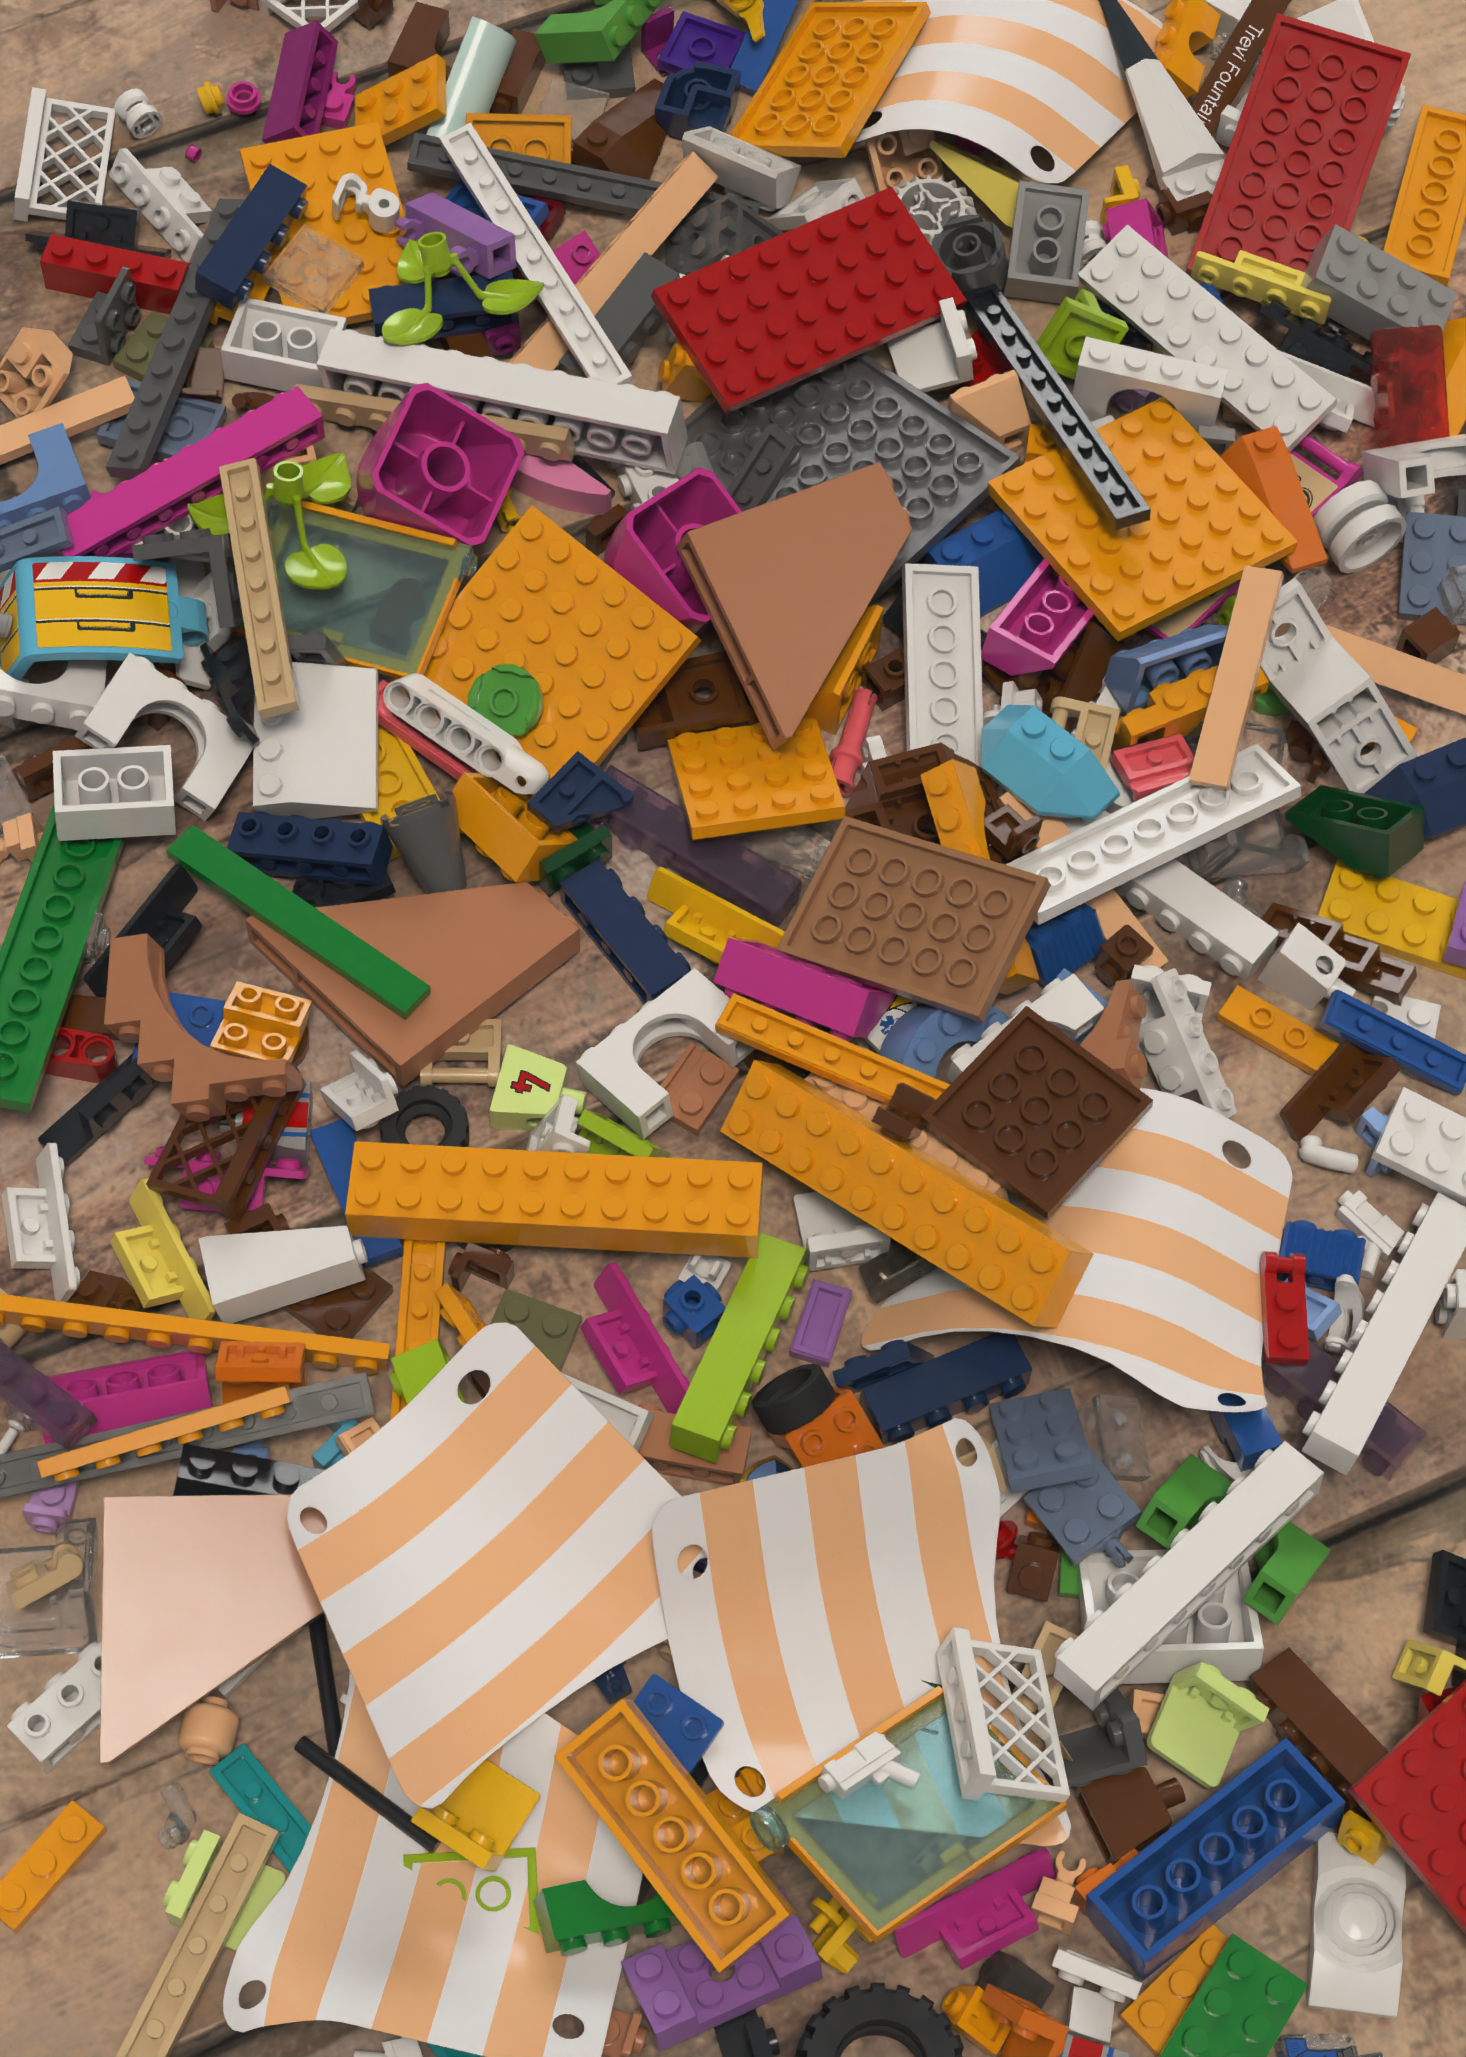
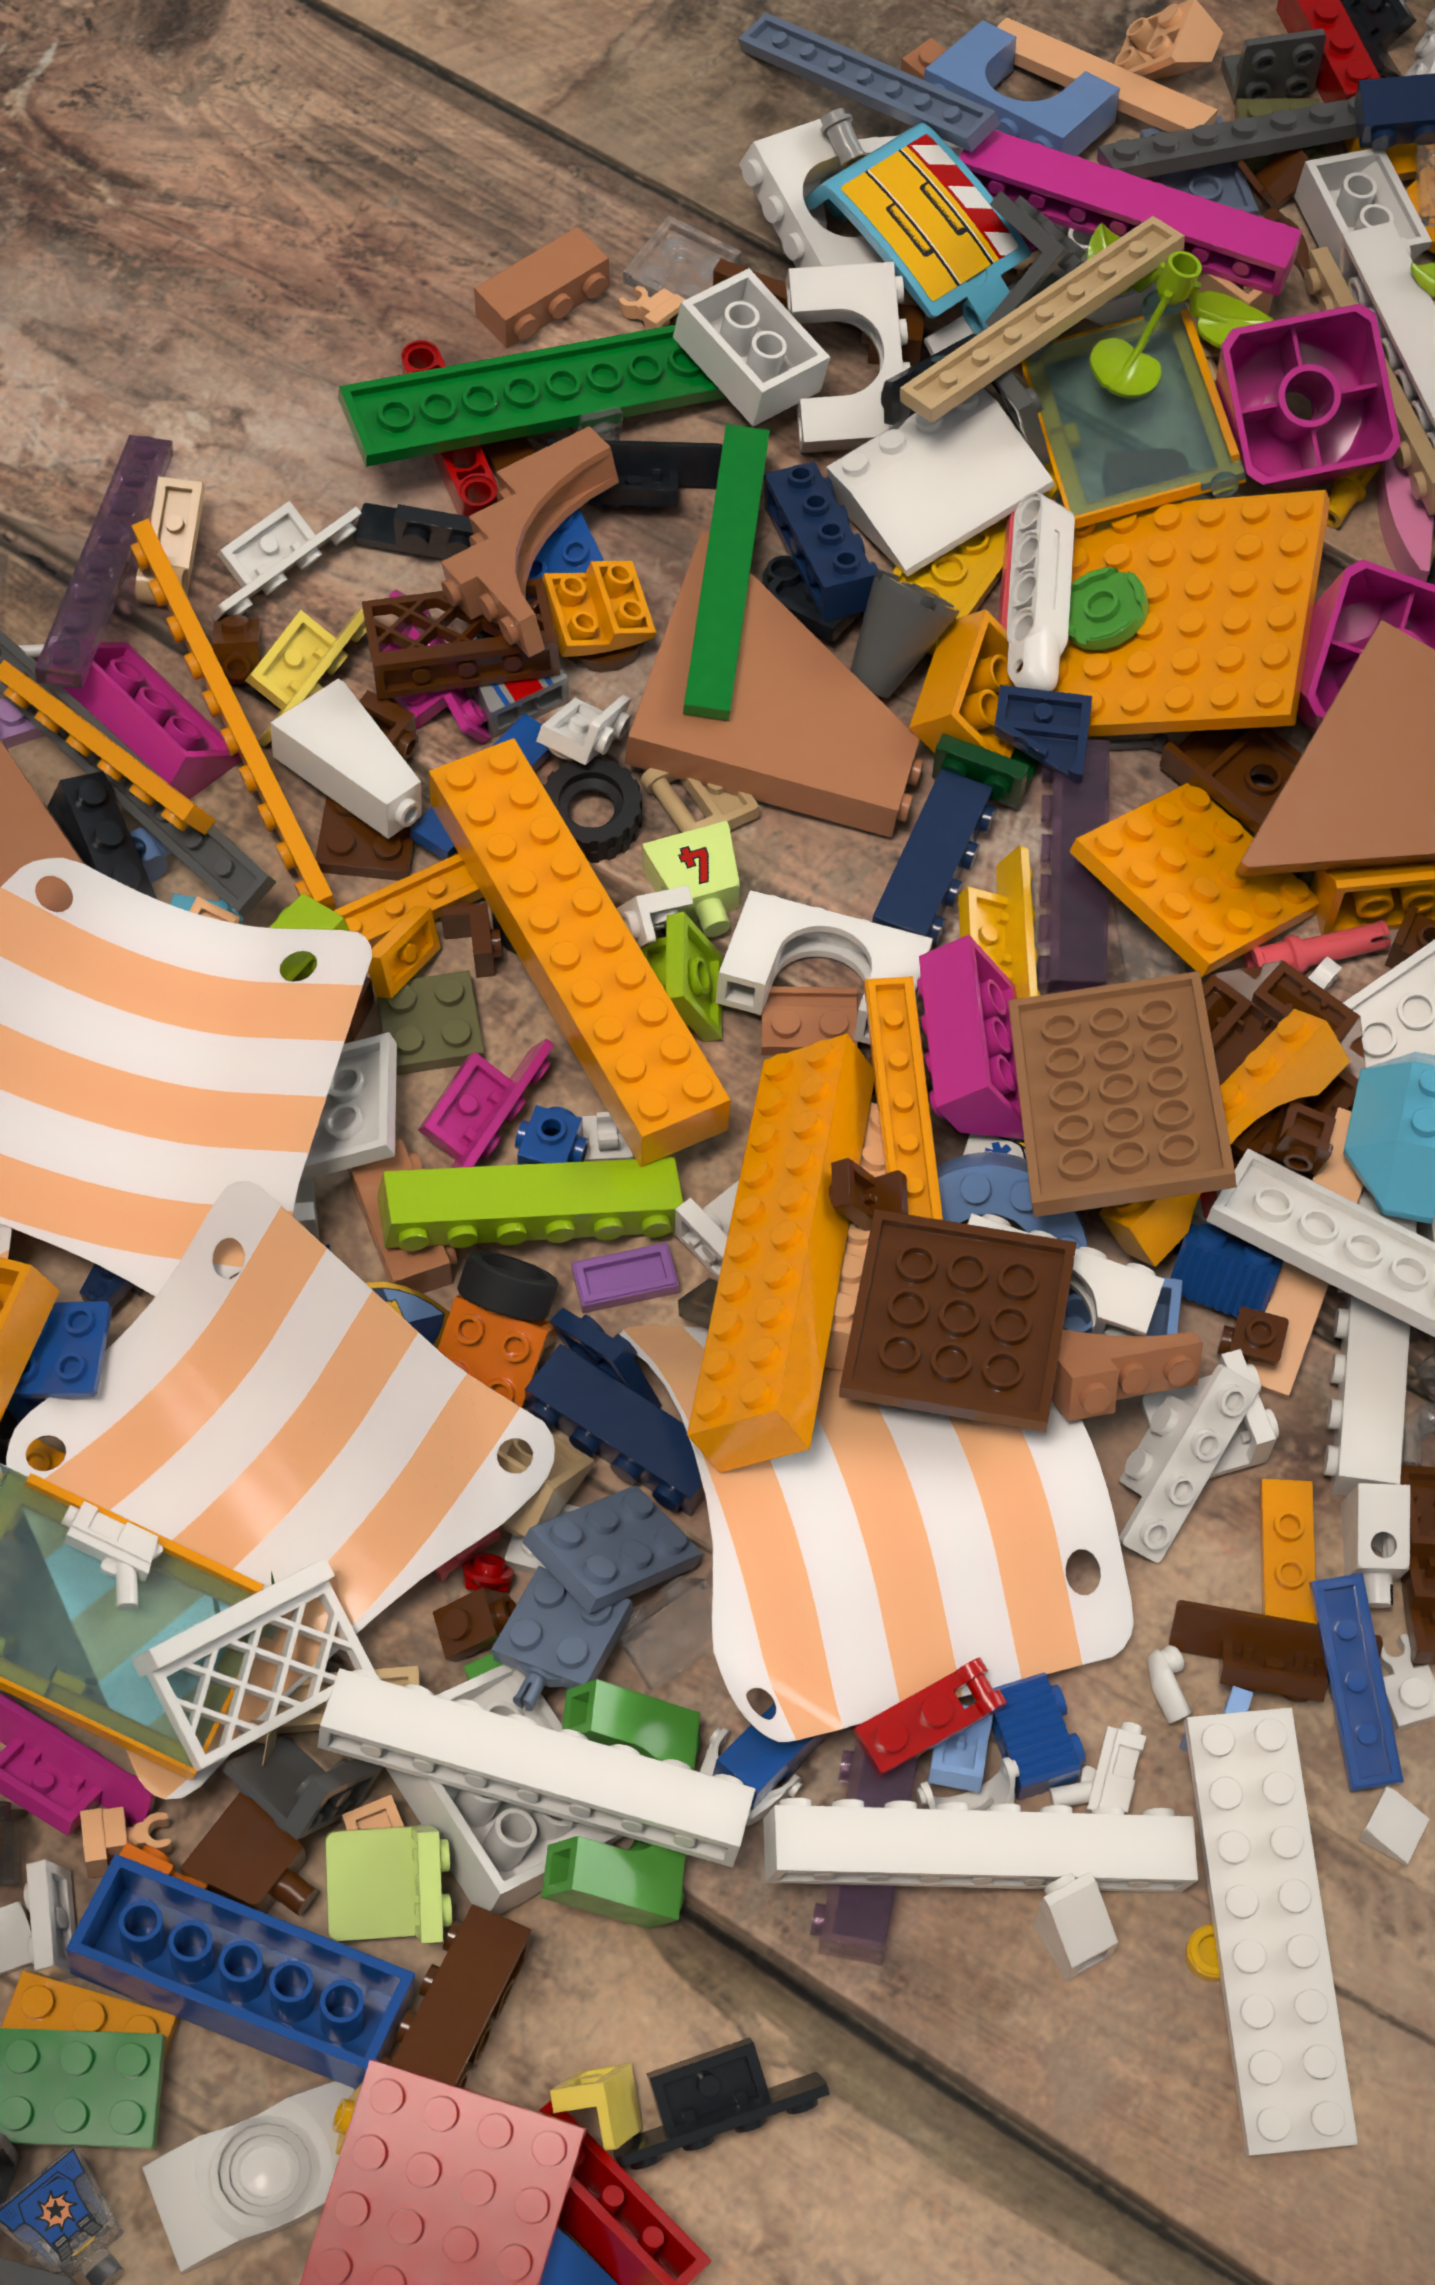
camera: 60 degrees right, 0 degrees up
(259, 1367) = (229, 795): orange bracket -> none

